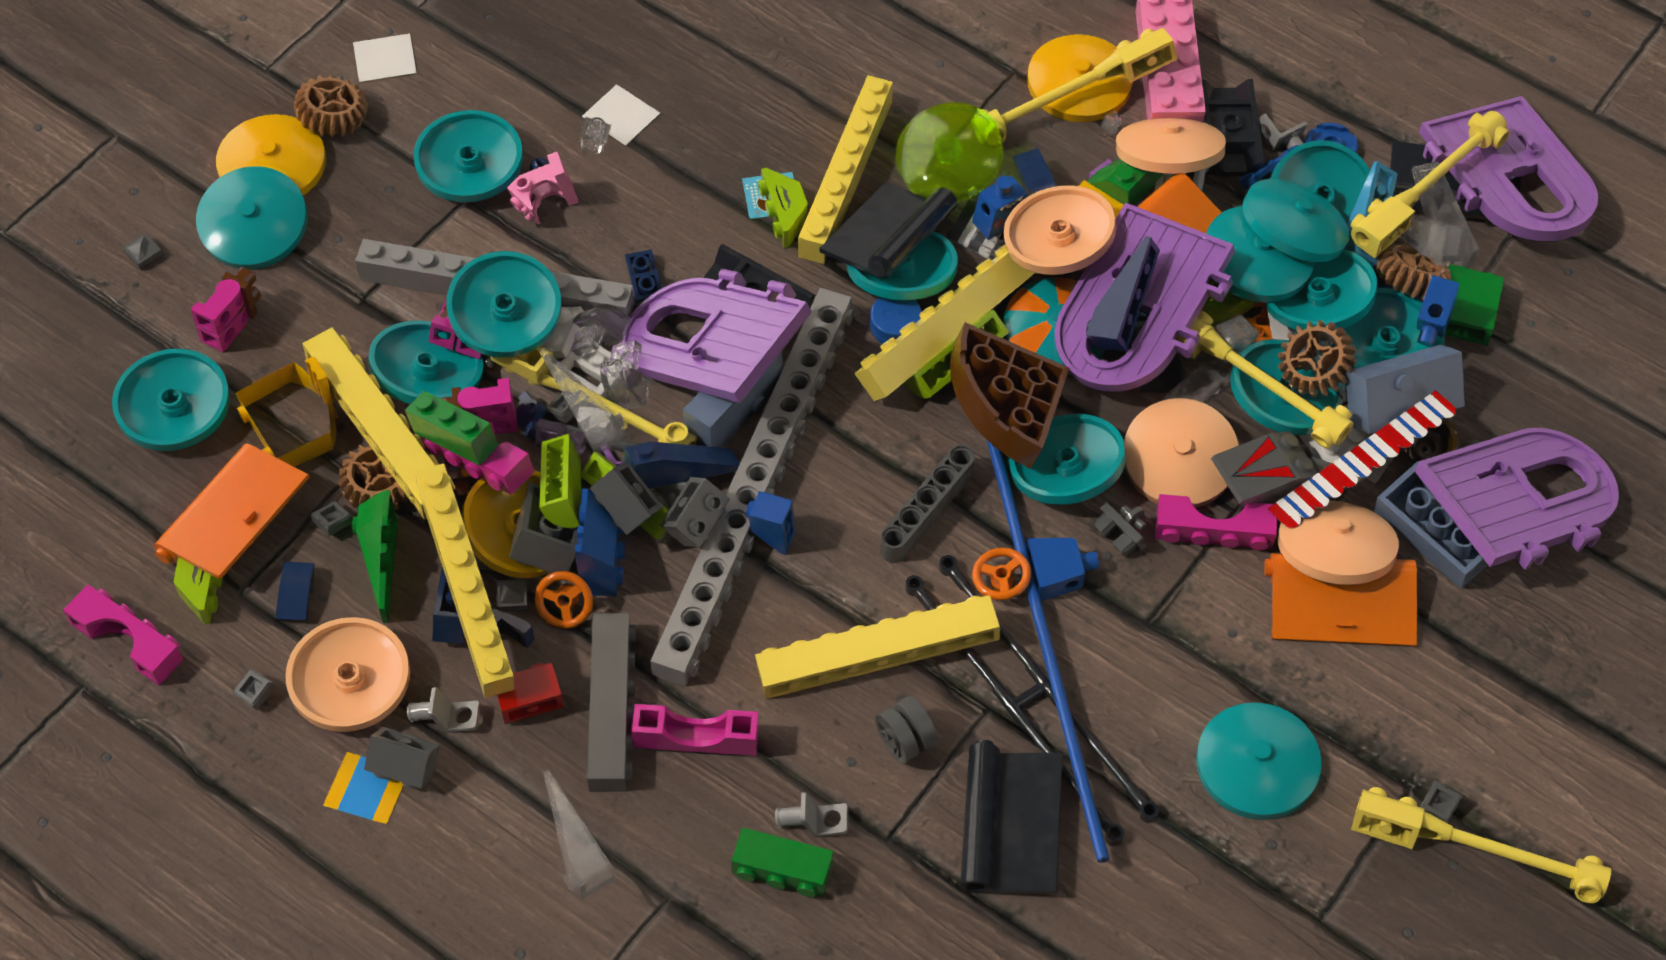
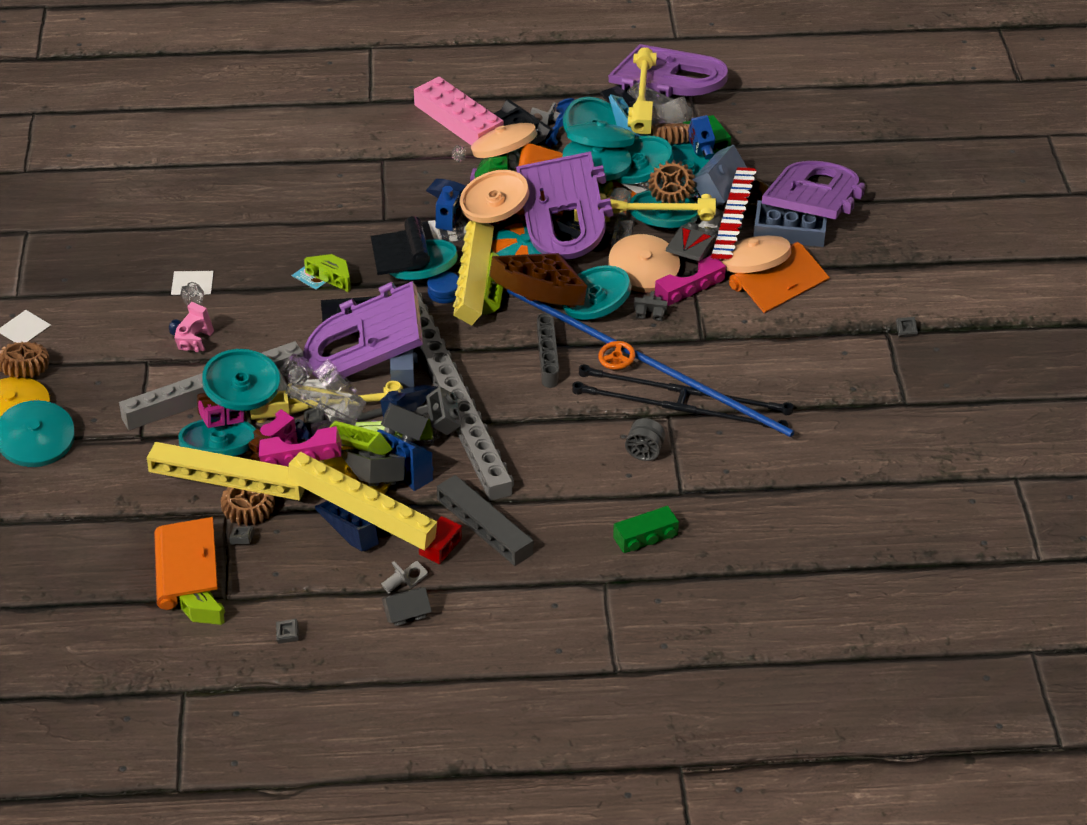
camera: 40 degrees left, 15 degrees down
(97, 614) = (159, 651): dark pink arch -> none
(171, 399) = (87, 535): teal dish -> none
(227, 309) = (73, 478): dark pink hips -> none
(295, 591) = (260, 577): dark blue slope -> none
(317, 382) = (173, 479): yellow piece -> none
(347, 674) = (335, 589): light nougat dish -> none
(362, 792) = (396, 639): sticker -> none
(377, 536) = (285, 530): green wedge -> none
(451, 427) = (283, 438): green brick -> none
(468, 156) = (132, 339): teal dish -> none
(571, 591) = (405, 490): orange piece -> none
(583, 859) = (538, 586): clear slope -> none
(643, 274) = (284, 337): dark blue slope -> none
(664, 730) = (562, 493): dark pink arch -> none
(772, 520) = (484, 394): blue slope -> none
(813, 817) = (636, 503): light grey bracket -> none
(845, 168) = (346, 239): light yellow brick -> none
(877, 646) = (591, 418): light yellow brick -> none
(950, 149) = (390, 201): clear neon green dish -> none
(1011, 821) = (732, 447): black door -> none
(1059, 565) = (639, 335): blue torso -> none
(1068, 59) = (419, 144): yellow dish -> none
(1120, 307) = (561, 210): dark blue slope -> none
(1132, 59) = (446, 115): light yellow bar -> none
(1258, 761) = (812, 360): teal dish -> none
(1404, 822) = (903, 342): light yellow bar -> none

